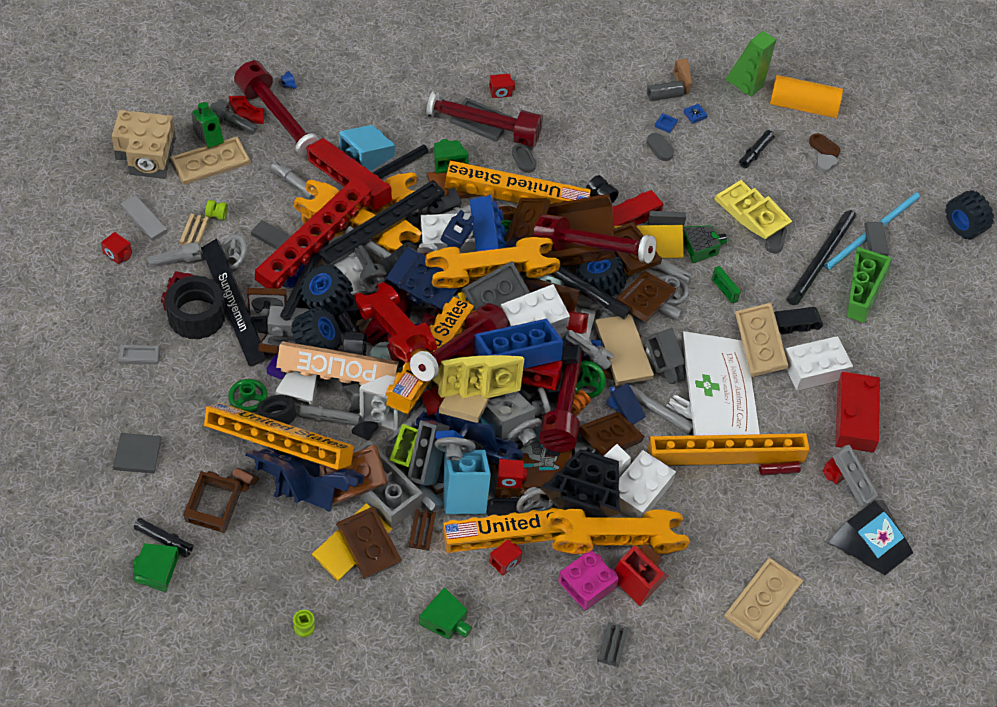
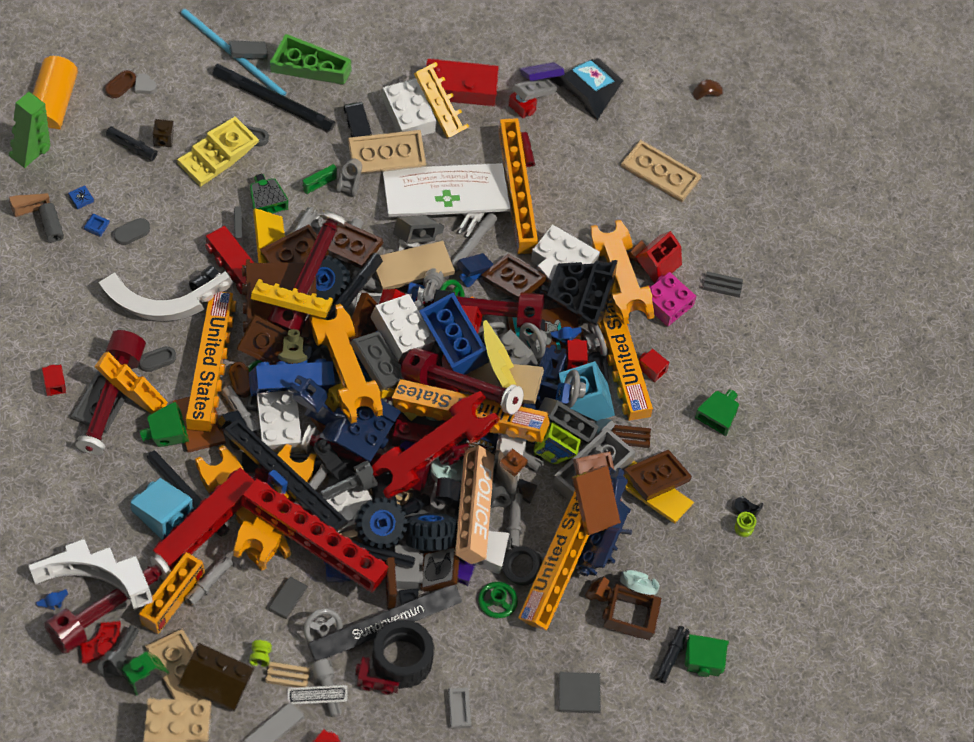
camera: 95 degrees left, 5 degrees up
(168, 247) = (317, 694): none -> sticker
(196, 175) = (216, 677): none -> dark brown slope
(244, 510) = (639, 582): none -> light aqua tile
(281, 149) = (172, 593): none -> light orange brick
(298, 110) = (101, 565): none -> white arch
(317, 448) = (596, 500): none -> dark orange tile
(325, 629) = (742, 504): none -> black hair
(368, 382) = (513, 462): none -> dark orange tile
(371, 210) = (277, 482): none -> blue tile
(490, 128) = (131, 385): none -> light orange slope
(503, 228) = (293, 340): none -> olive piece
(536, 469) = (566, 334): none -> blue piece
(560, 222) = (291, 299): none -> yellow hinge
(574, 146) = (164, 309): none -> white arch
(728, 306) = (349, 180): none -> light grey piece
(767, 168) = (163, 133): none -> dark brown brick
(826, 383) = (439, 101): none -> yellow hinge
(880, 486) = (542, 71): none -> dark purple tile
(883, 661) = (707, 87): none -> reddish brown hair

